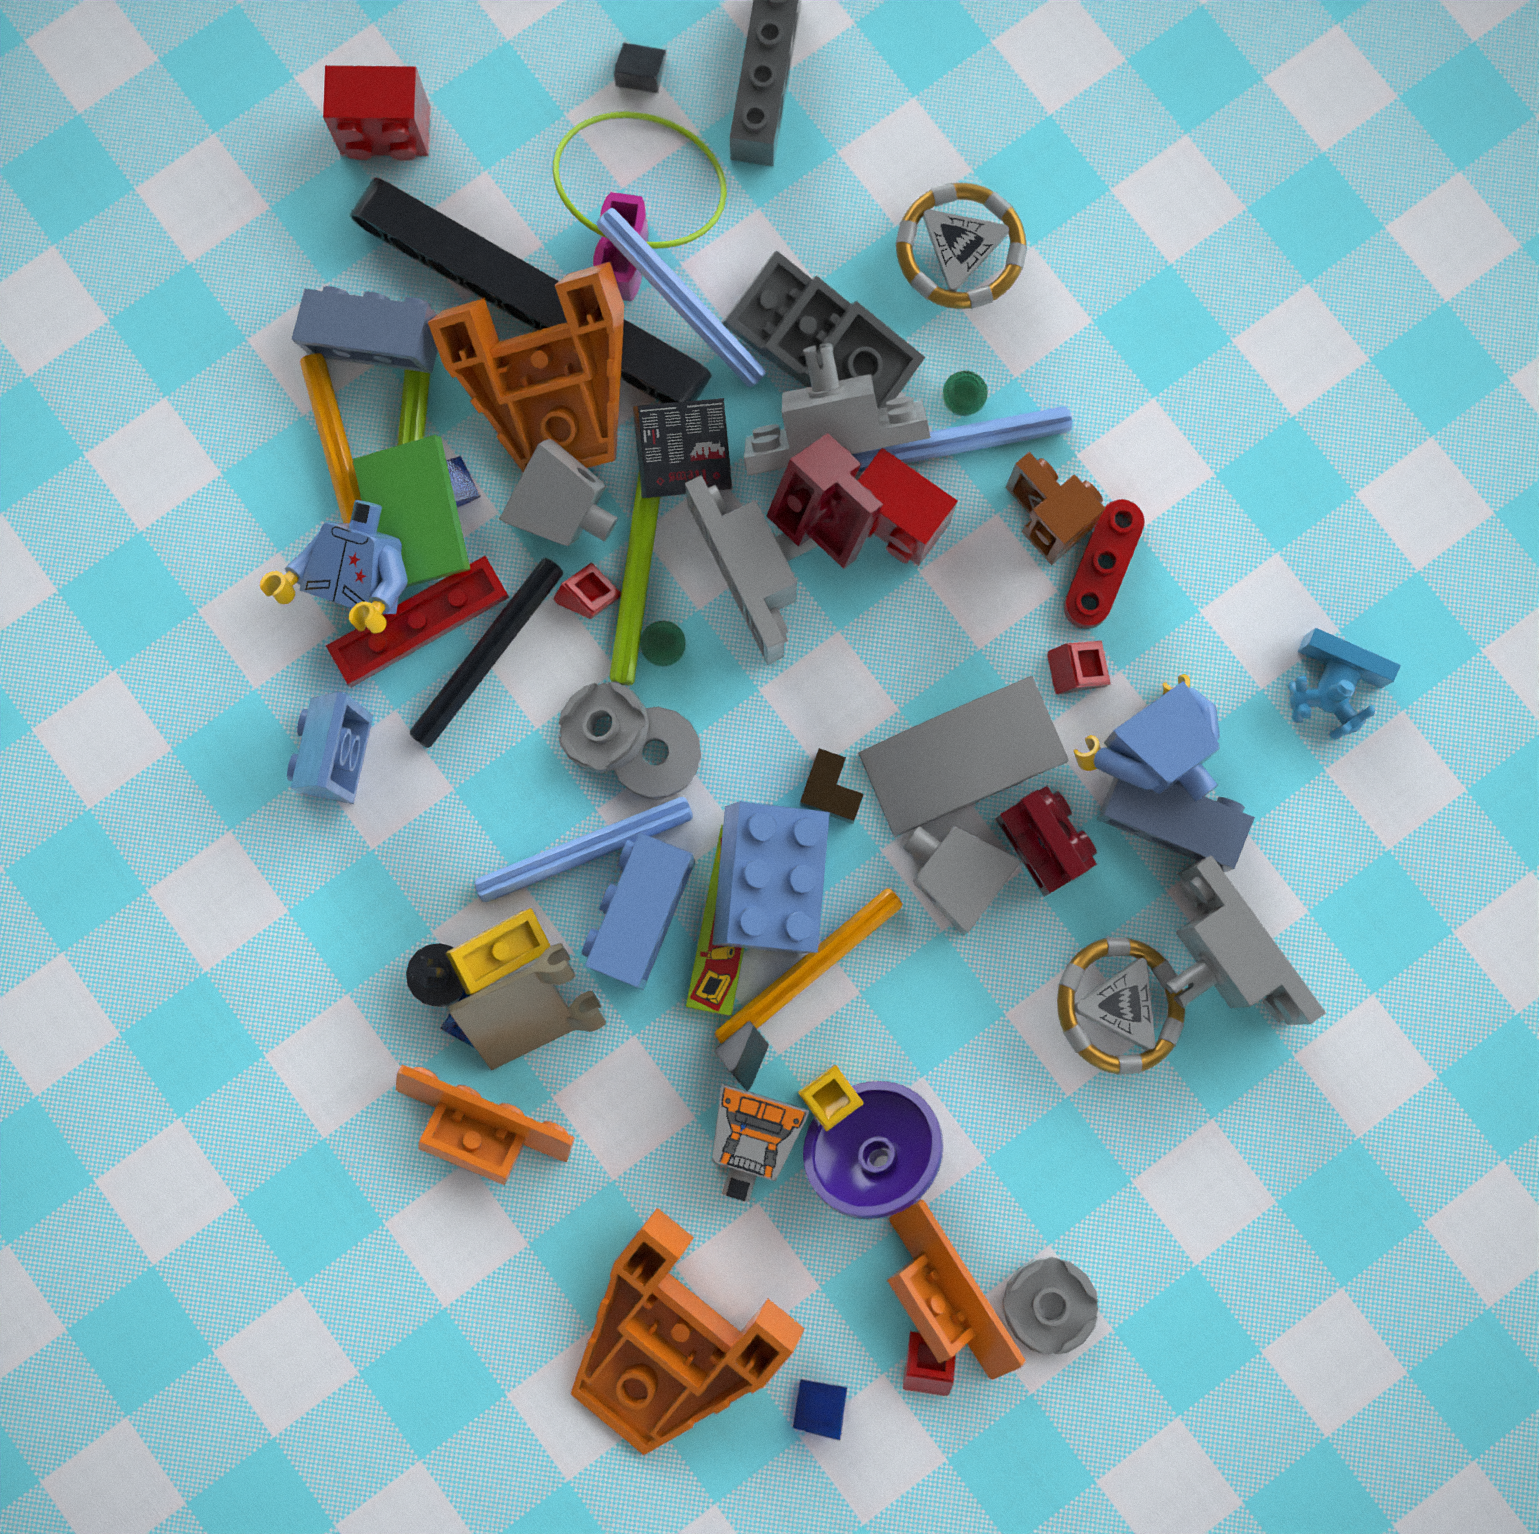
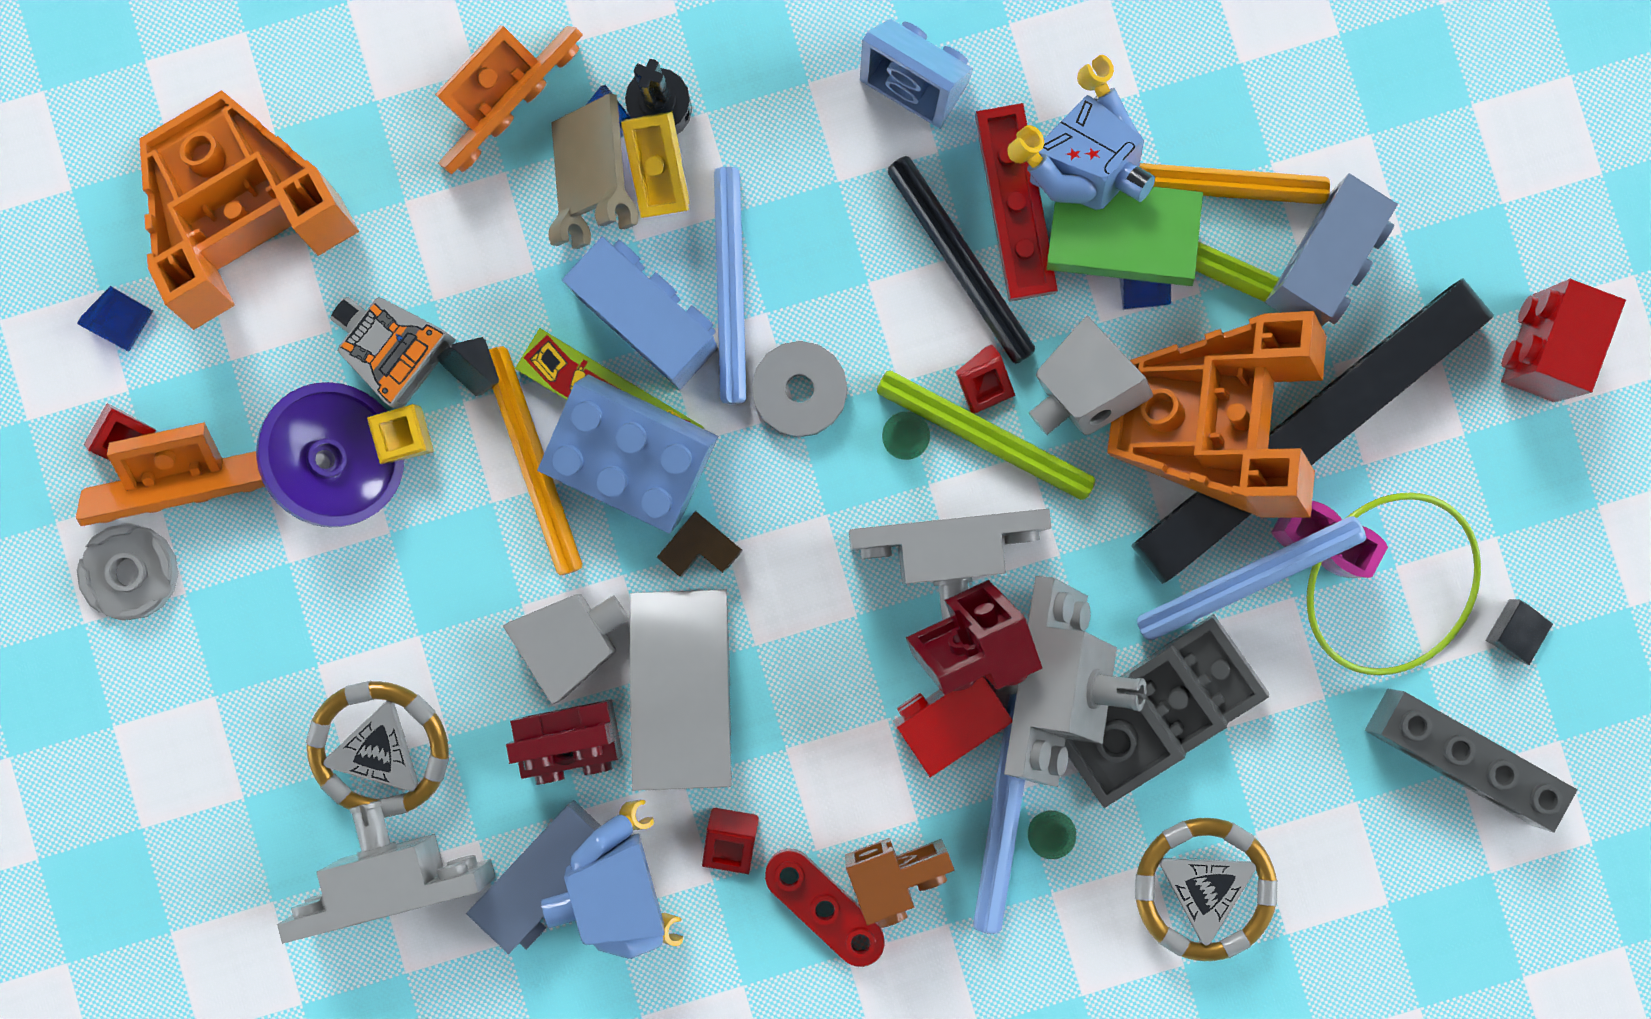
camera: 110 degrees right, 5 degrees up
(619, 743) = (828, 367): light grey tile -> none
(681, 444) = (1095, 525): black tile -> none

